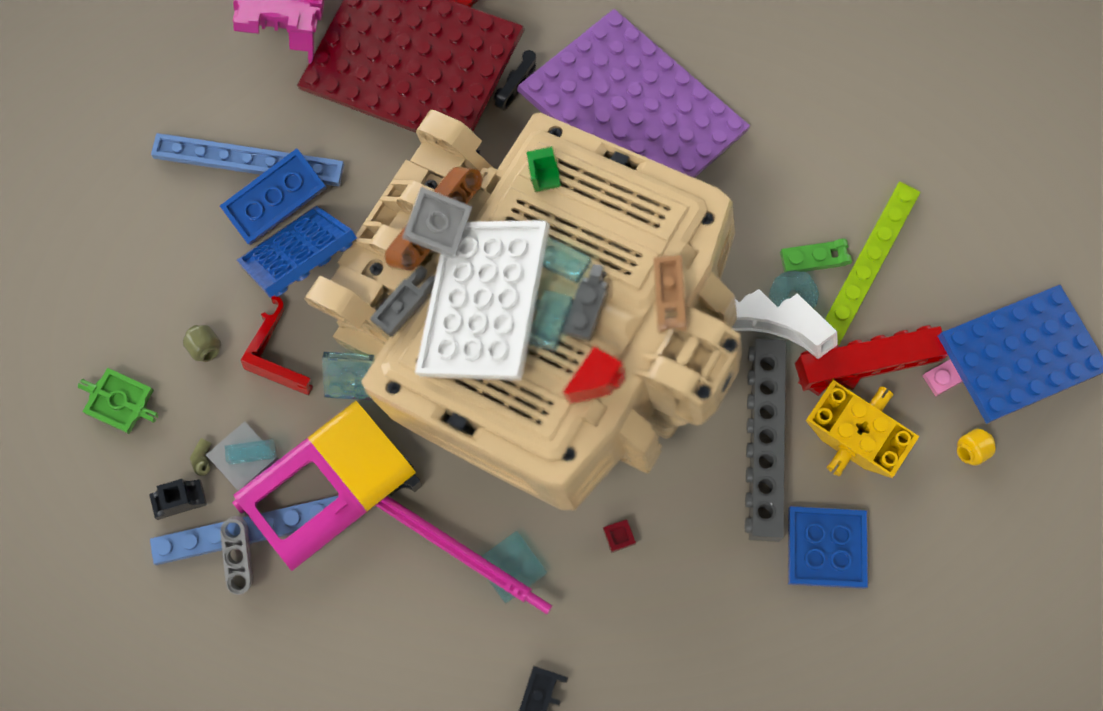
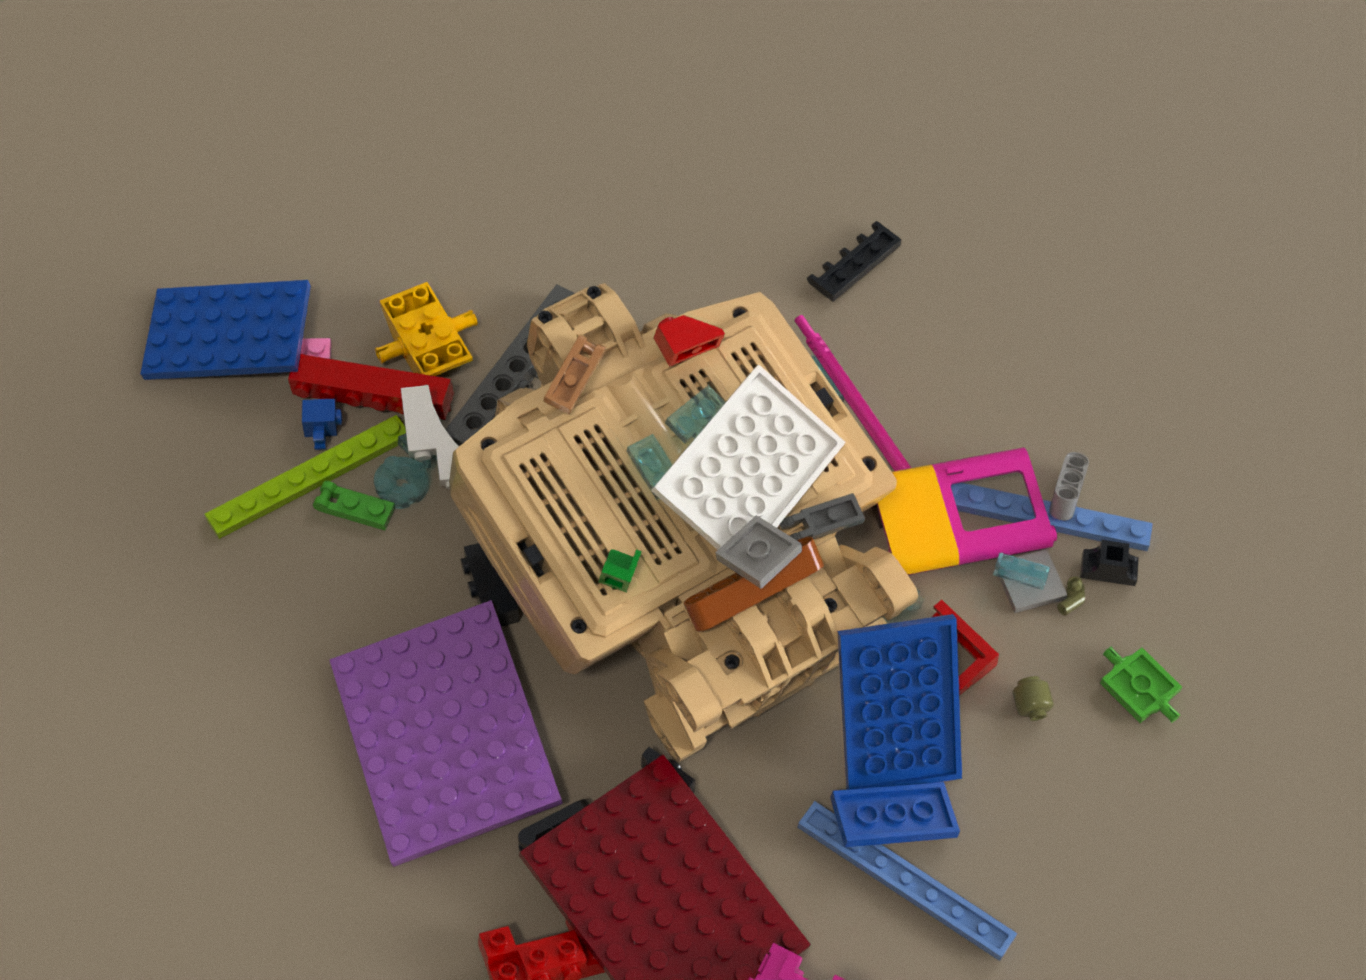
camera: 155 degrees left, 15 degrees down
(587, 305) = (653, 412): dark grey hinge -> none
(827, 547) = (518, 271): blue plate -> none
(891, 312) = (320, 420): none -> blue brick
(976, 447) = (330, 282): yellow head -> none

